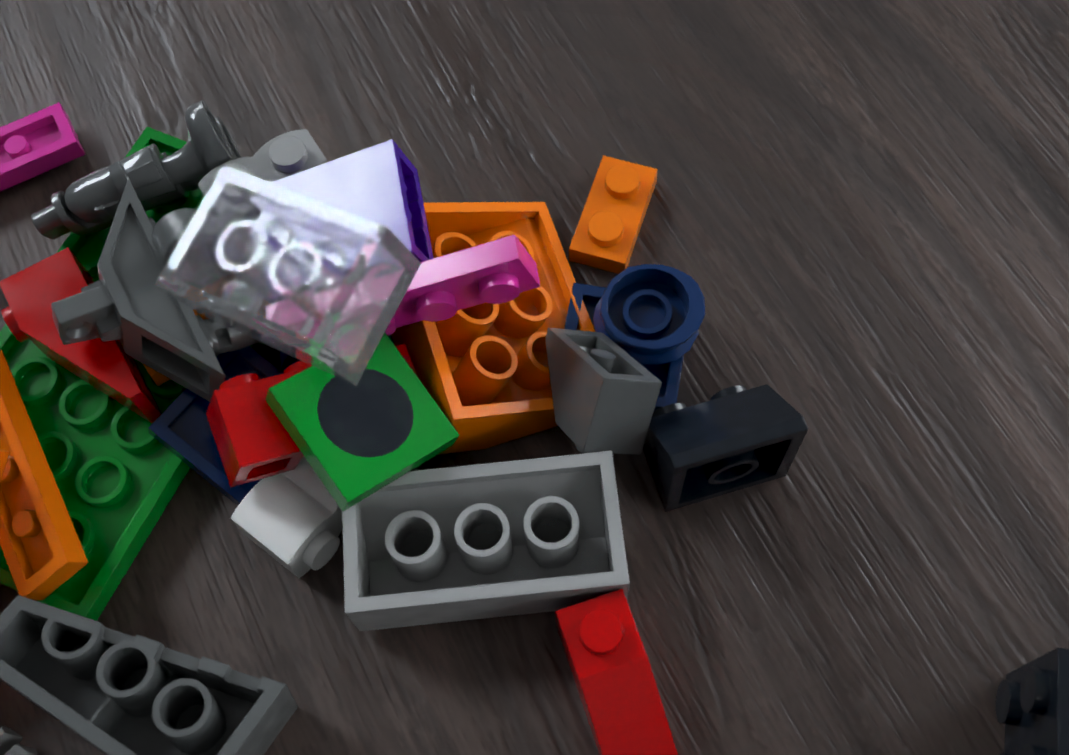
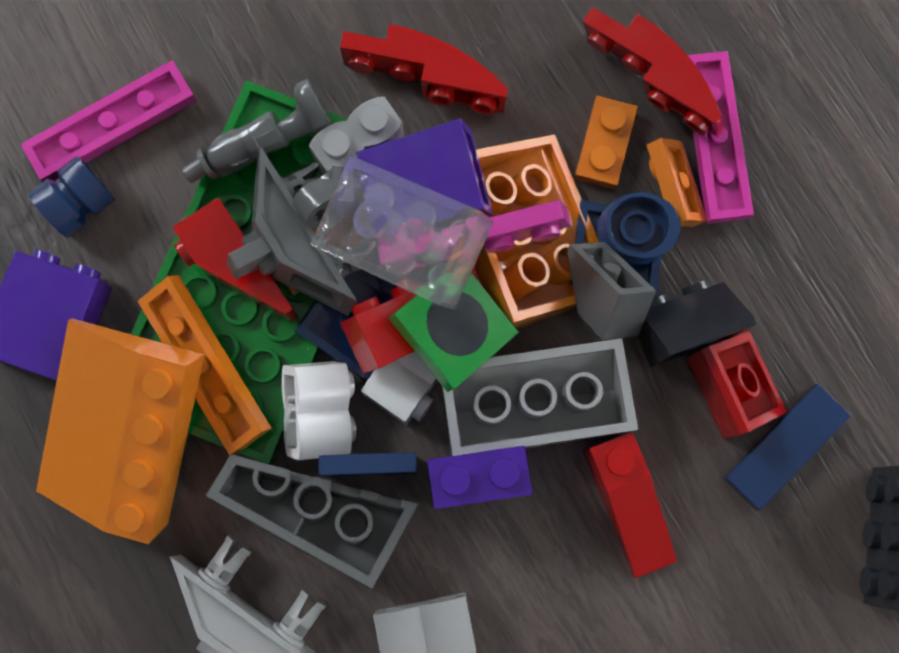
camera: 10 degrees left, 15 degrees up
(165, 542) = (317, 409): none -> white brick
(221, 622) = (368, 464): none -> dark blue tile
(375, 646) = (479, 477): none -> dark purple brick
(381, 108) = (444, 70): none -> red slope
(693, 118) = (670, 73): none -> red slope
(706, 257) = (676, 180): none -> orange plate
(766, 213) = (722, 158): none -> dark pink plate
(789, 536) = (736, 385): none -> red slope
(867, 635) = (786, 447): none -> dark blue tile

